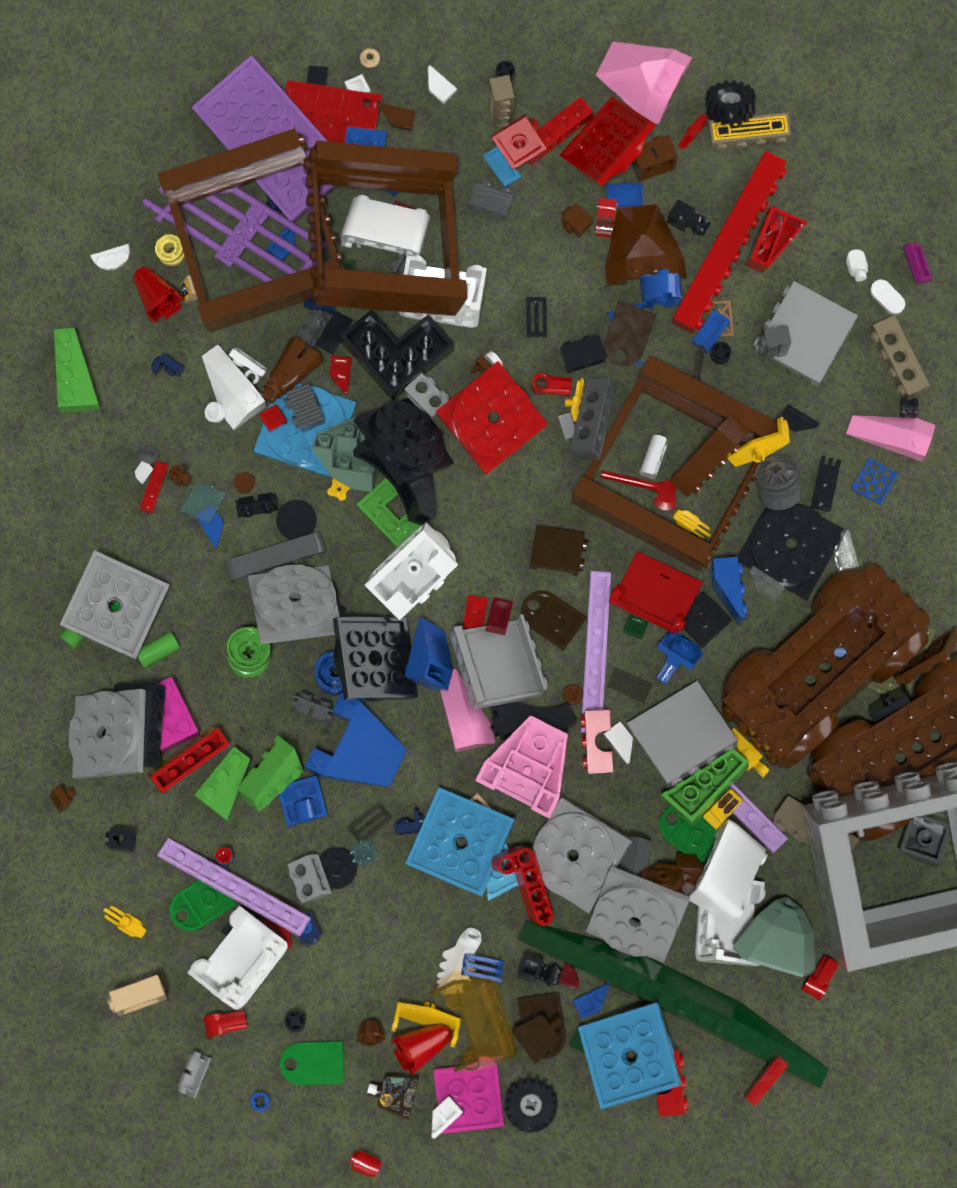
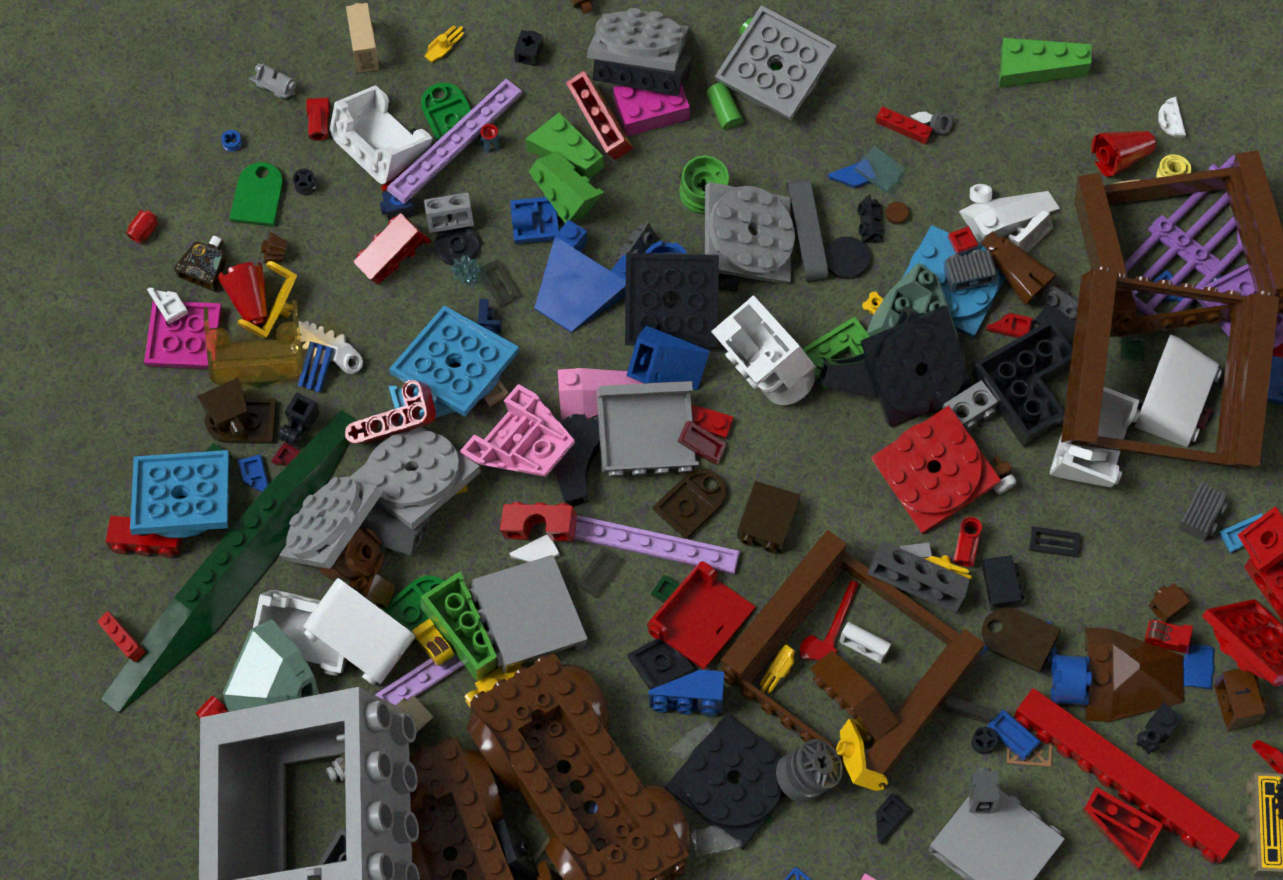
camera: 105 degrees right, 10 degrees down
(171, 366) = (1040, 153): dark blue bracket -> none
(179, 476) = (912, 146): reddish brown plate -> none
(355, 923) = (390, 248): none -> wedge
(524, 1113) = (162, 402): black wheel -> none
(572, 694) = (600, 509): reddish brown tile -> none
(679, 651) = (624, 628): blue piece -> none
(825, 485) = (804, 836): black hinge -> none

